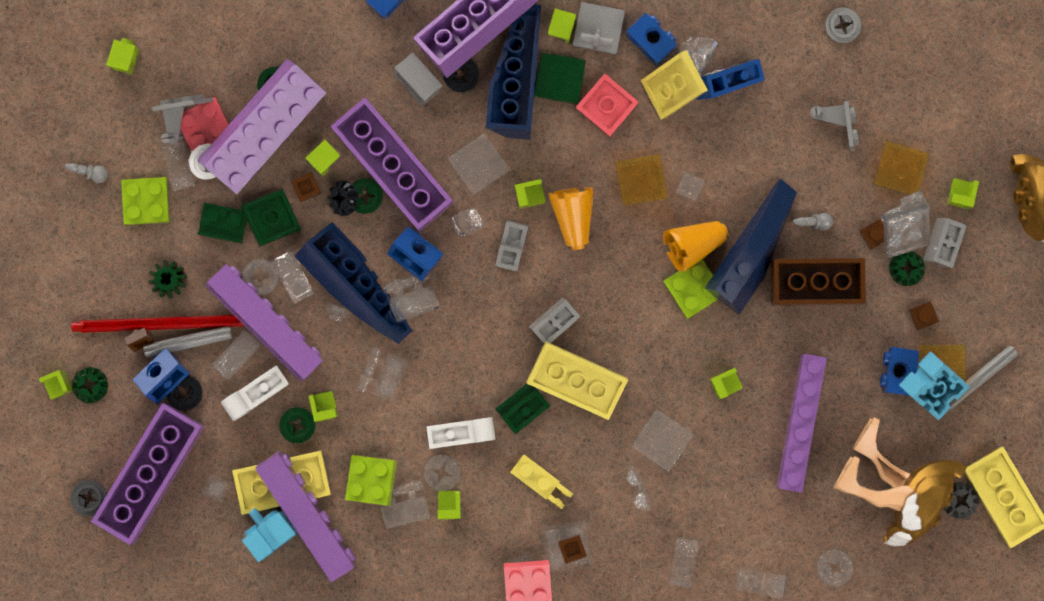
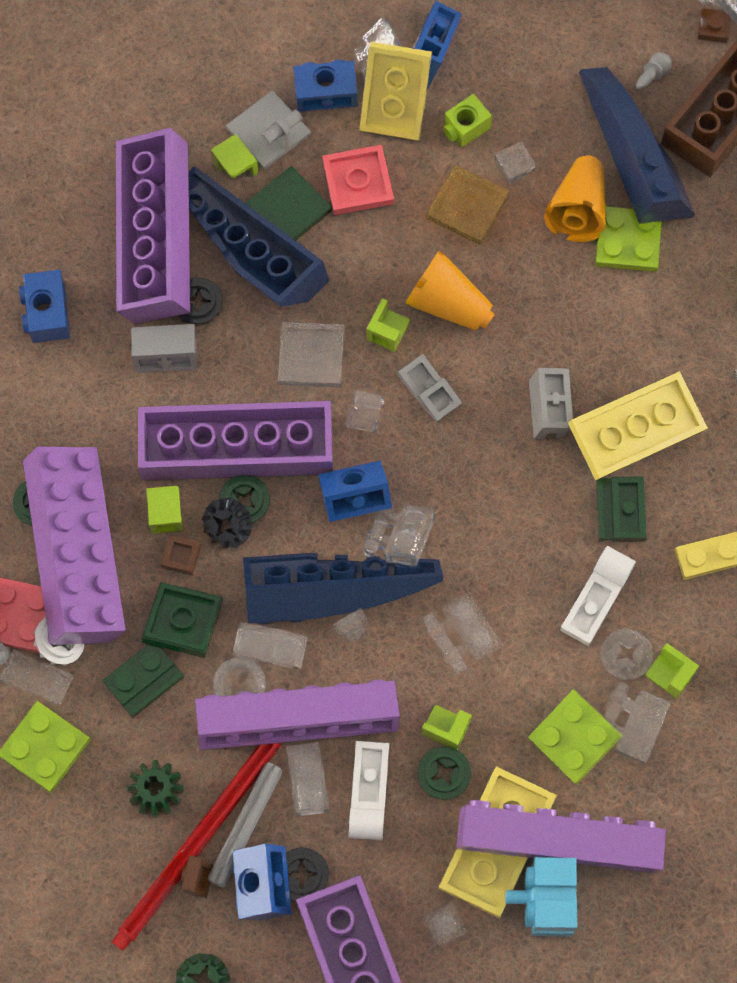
camera: 50 degrees left, 15 degrees down
(702, 134) = (472, 111): none -> lime brick

